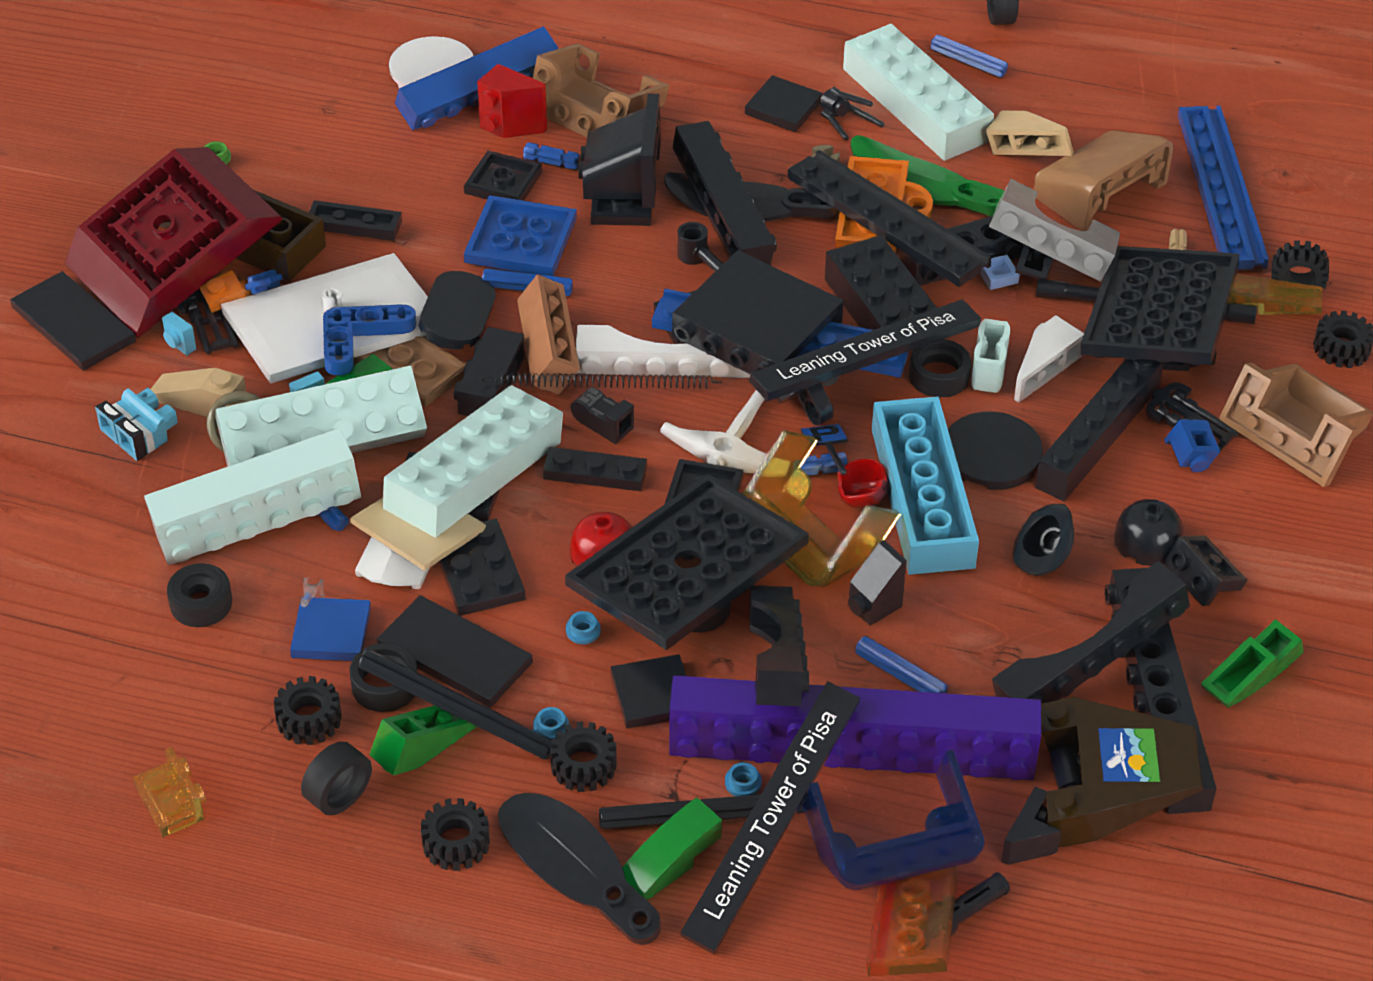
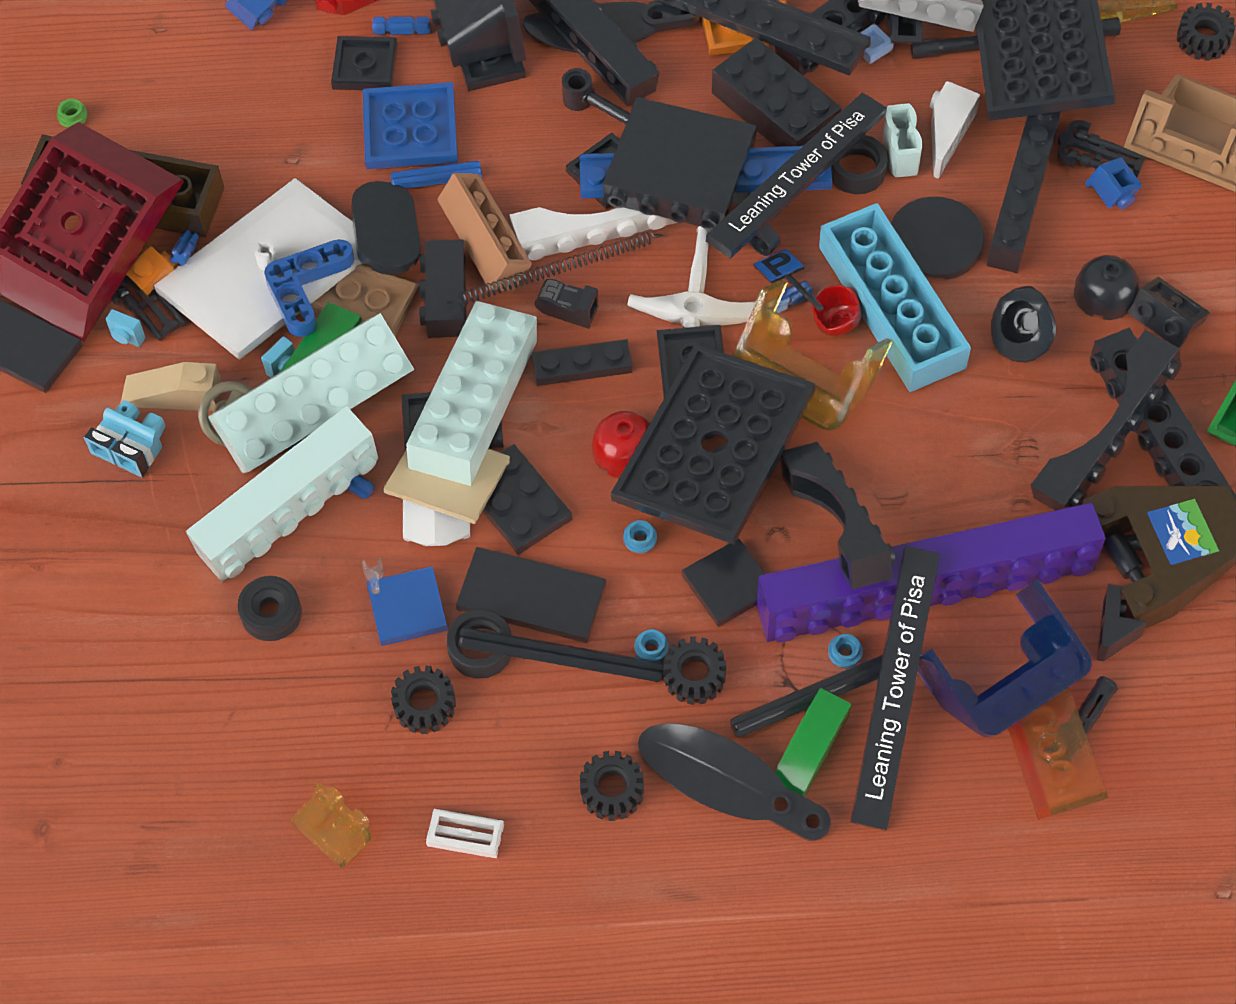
camera: 15 degrees left, 15 degrees up
(289, 842) = (464, 846): none -> white tile
(336, 778) = (485, 766): black tyre -> none
(357, 220) = (243, 150): black plate -> none
(415, 738) = (537, 700): green slope -> none
(878, 584) = (893, 415): black slope -> none
(899, 666) = (941, 492): blue axle -> none

